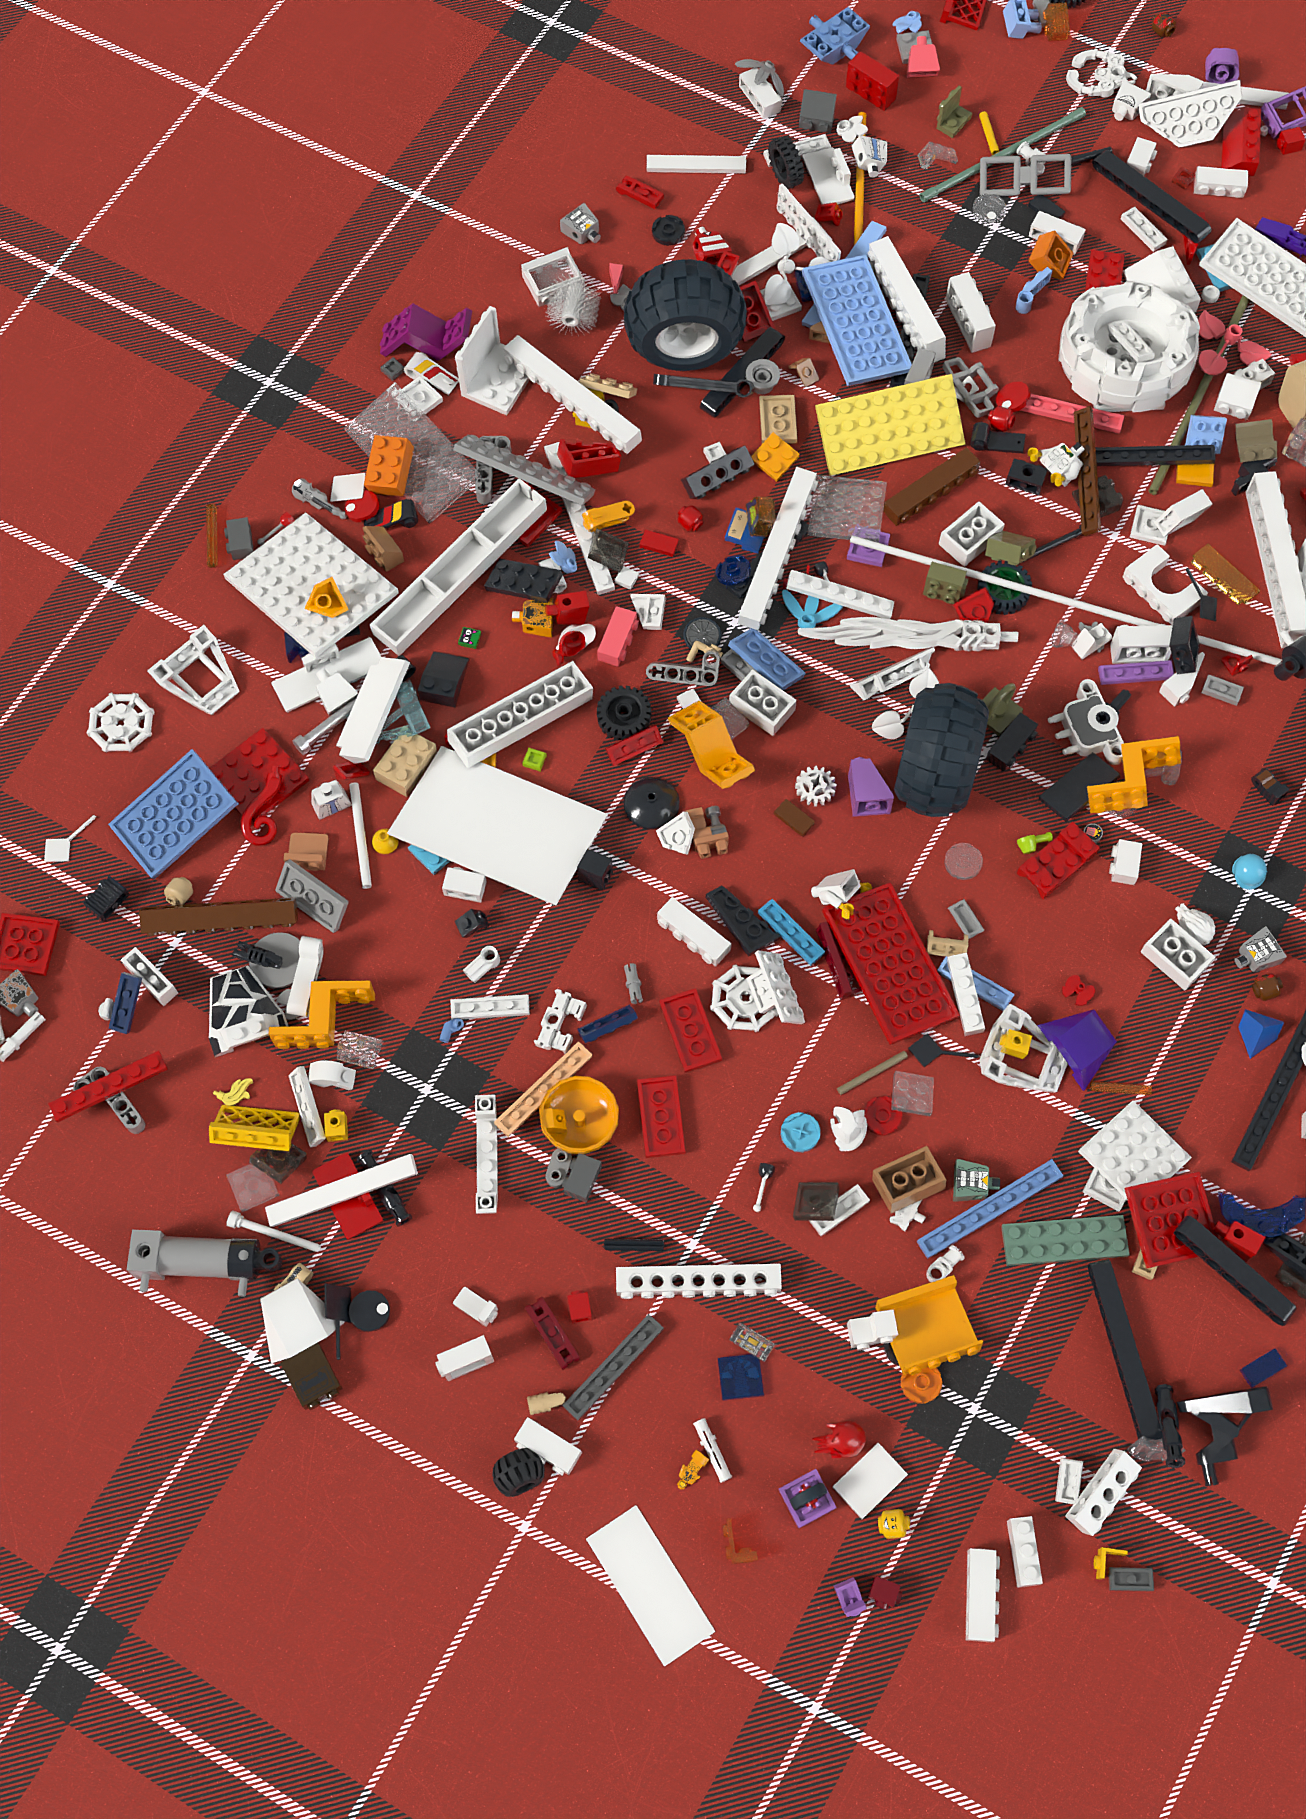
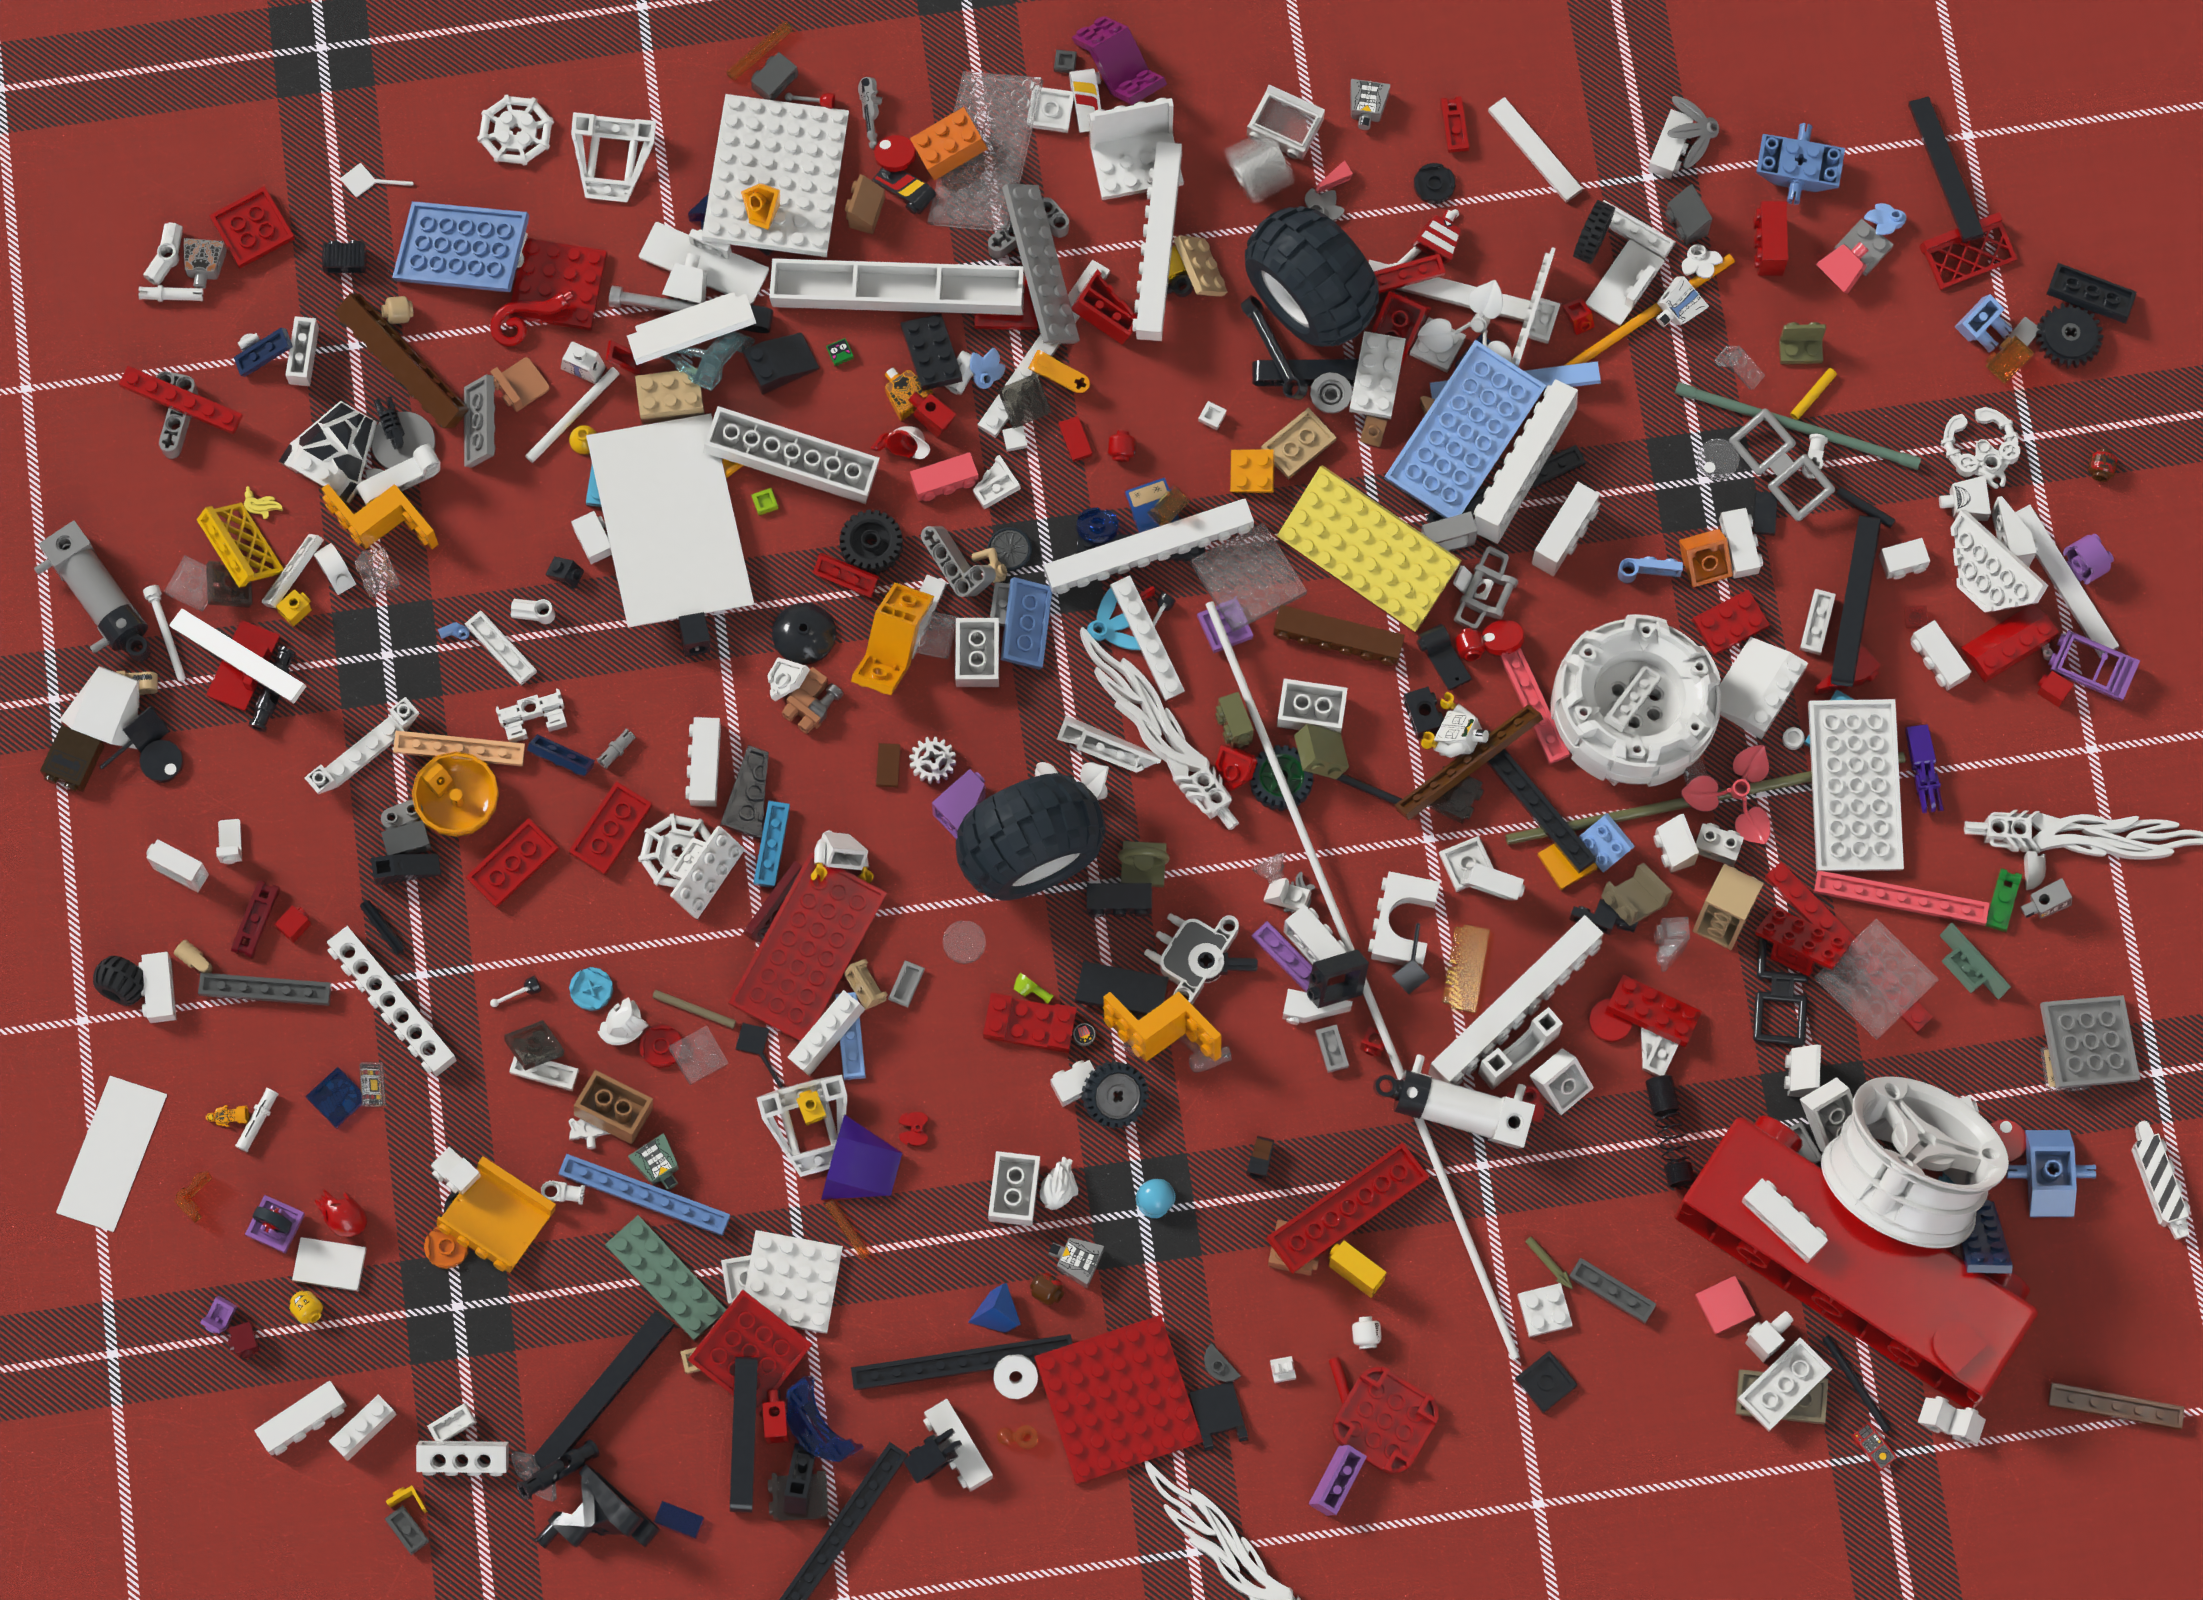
camera: 50 degrees right, 5 degrees up
(347, 487) = (904, 124): white sticker -> none
(602, 1194) = (404, 867): none -> black slope
(693, 481) = (1222, 436): brick -> none
(775, 340) = (1377, 375): none -> white plate
(1158, 840) = (1099, 1095): none -> wheel

